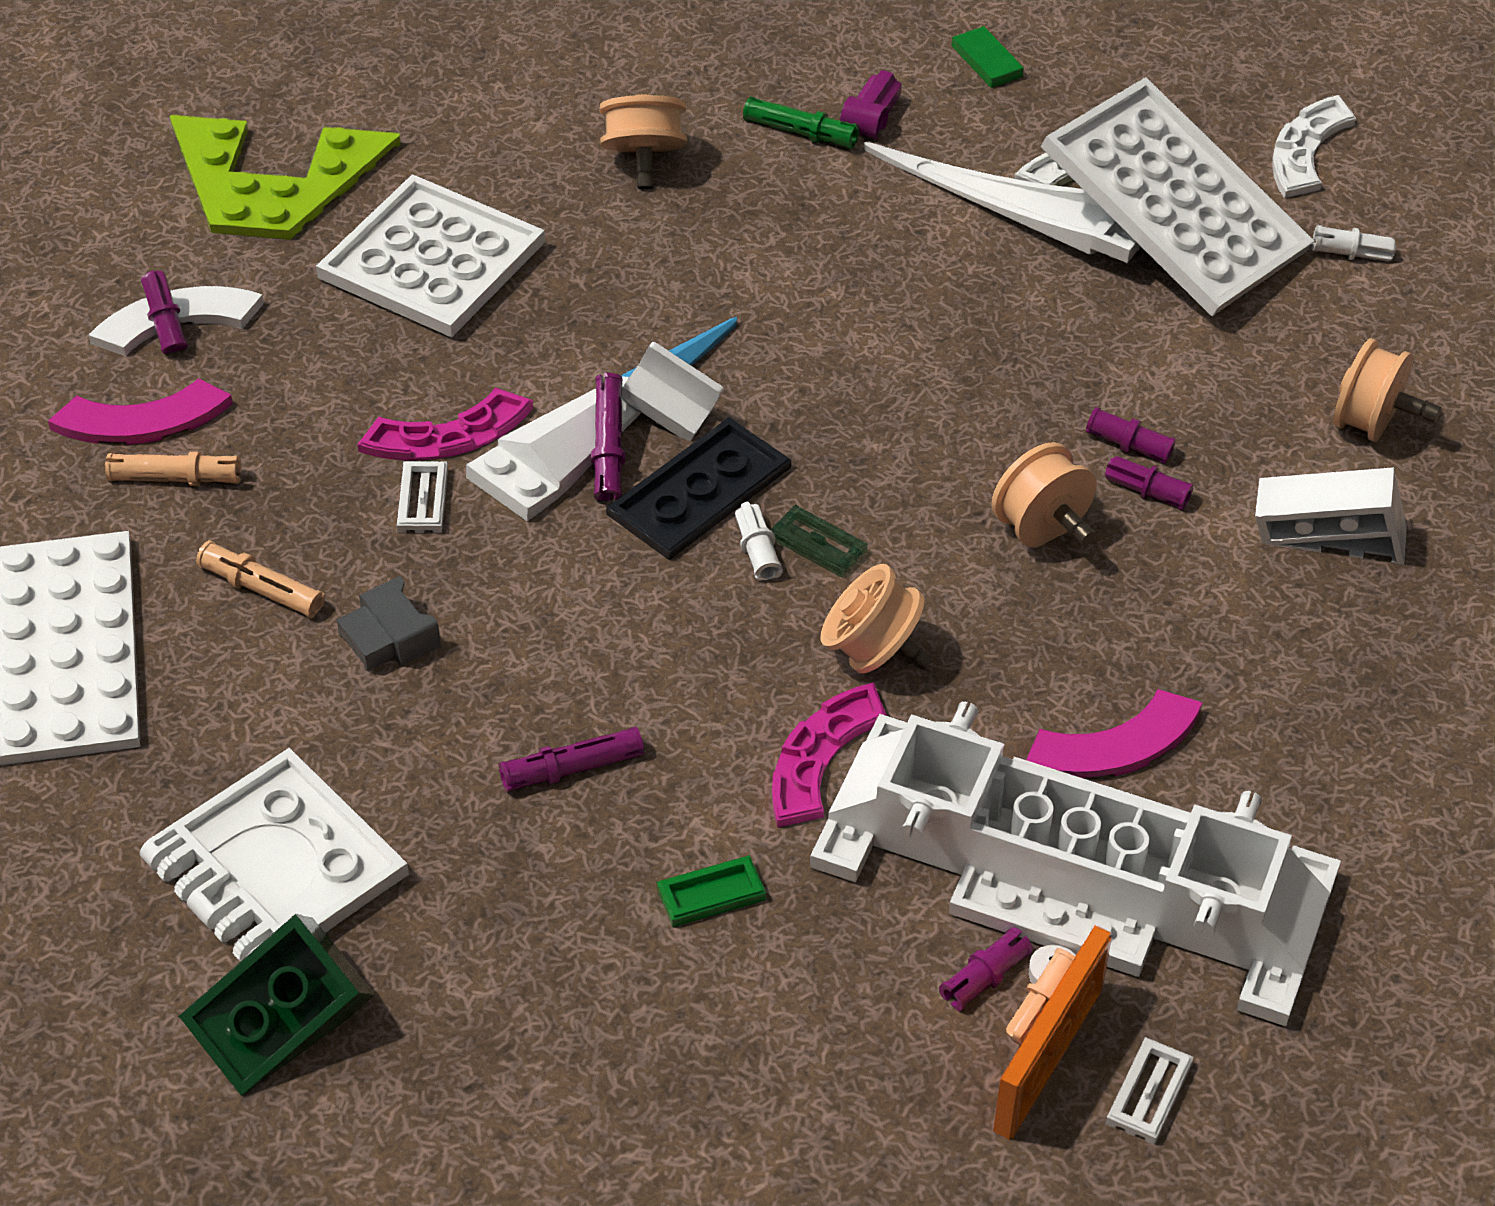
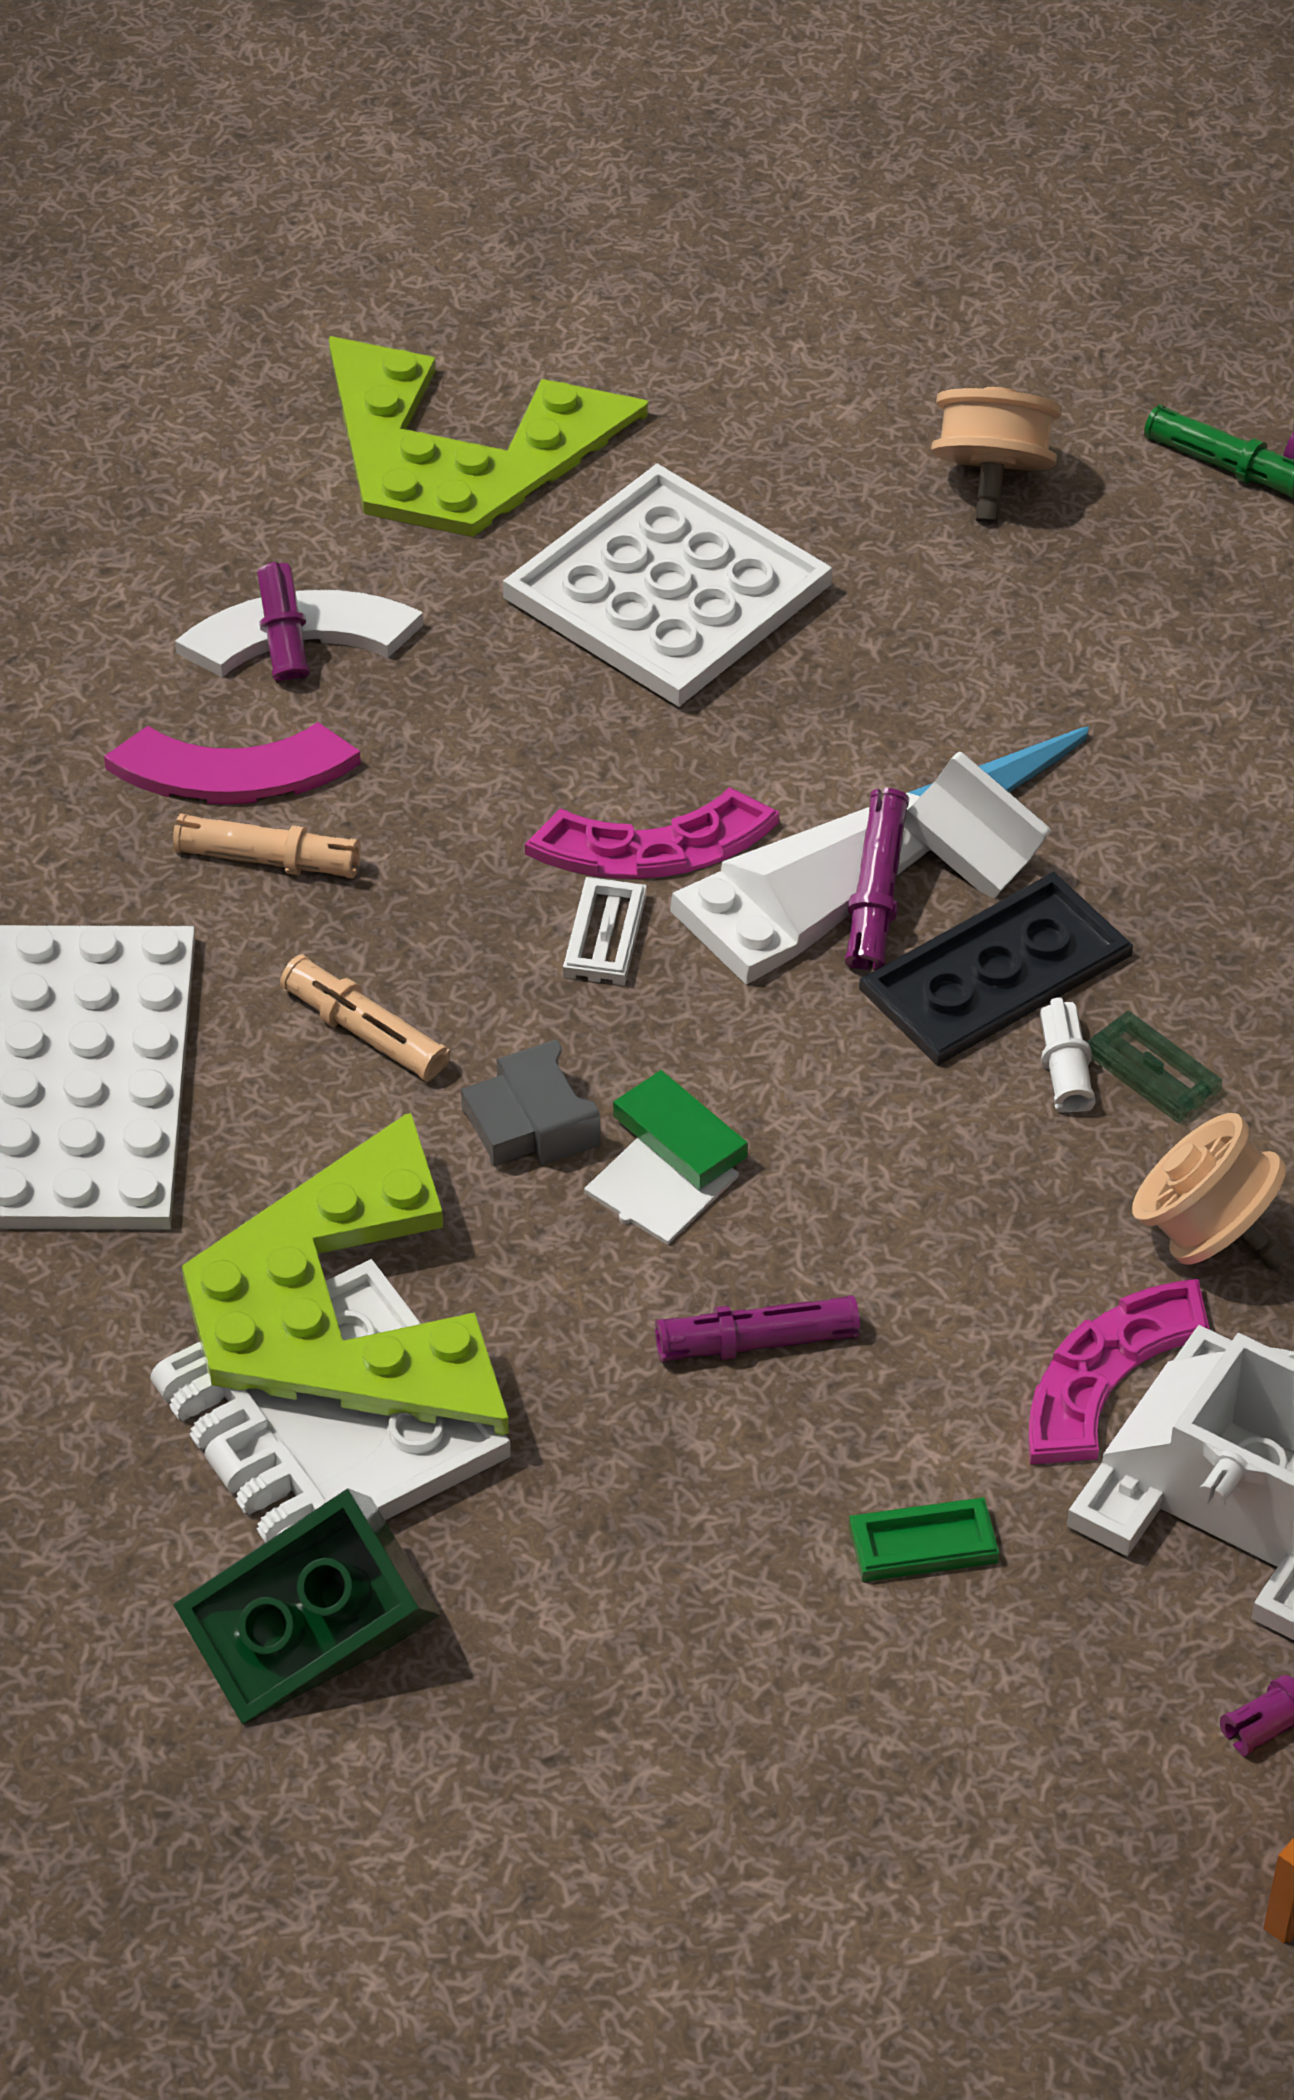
camera: 10 degrees right, 0 degrees up
(221, 797) = (270, 1313): none -> lime wing
(488, 666) = (653, 1193): none -> white piece
(496, 627) = (680, 1129): none -> green tile

